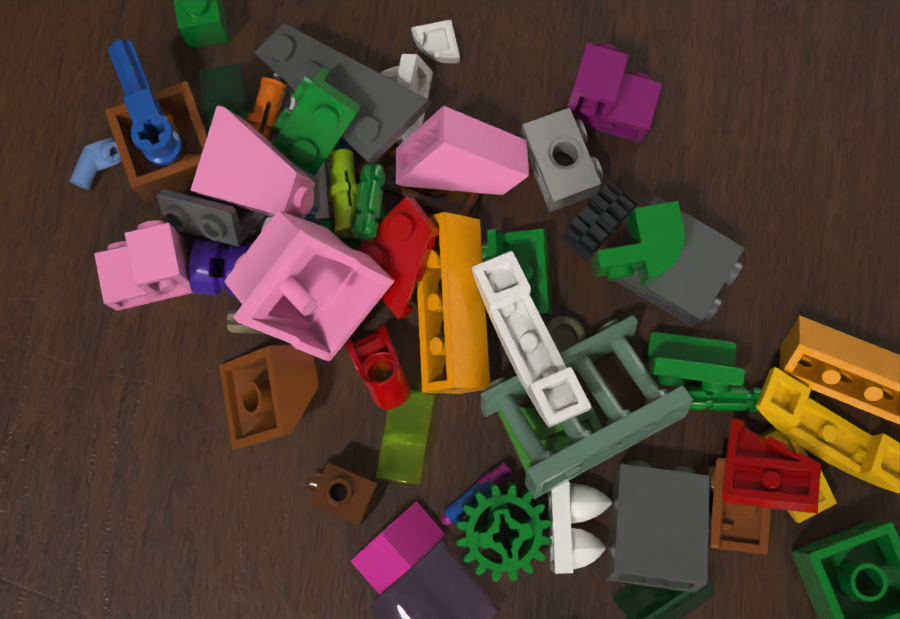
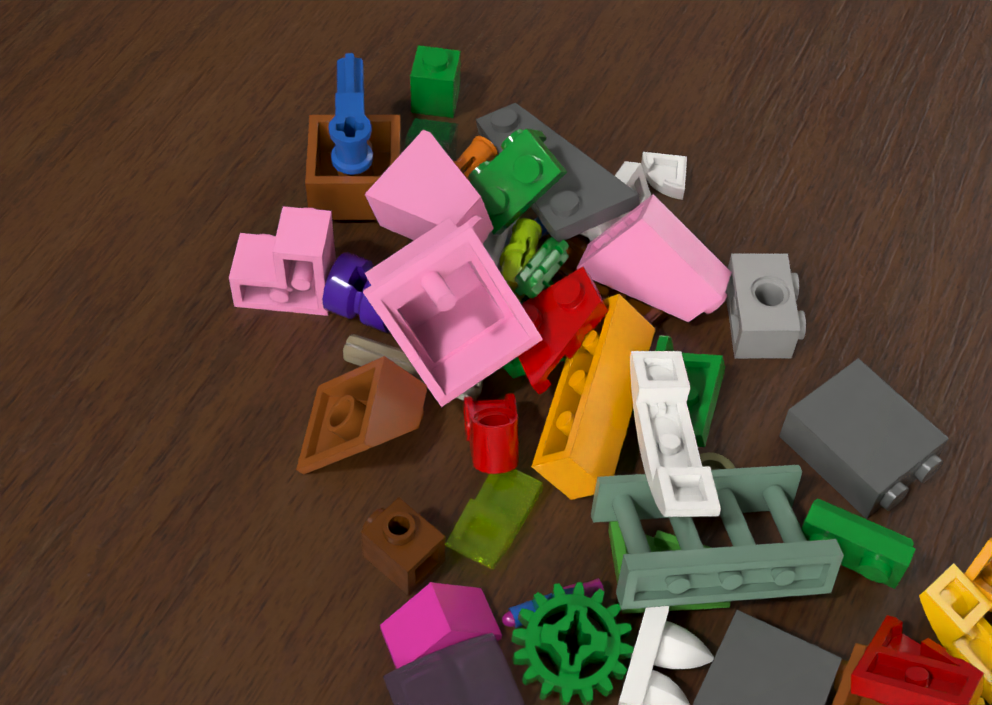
camera: 20 degrees right, 25 degrees down
(93, 159) = (276, 168): medium blue arm -> none
(207, 217) = (365, 229): dark grey bracket -> none
(598, 220) = (787, 364): black tyre -> none
(610, 98) = (833, 264): magenta brick -> none
(656, 245) = (833, 398): green brick -> none
(736, 400) = (881, 599): green axle -> none

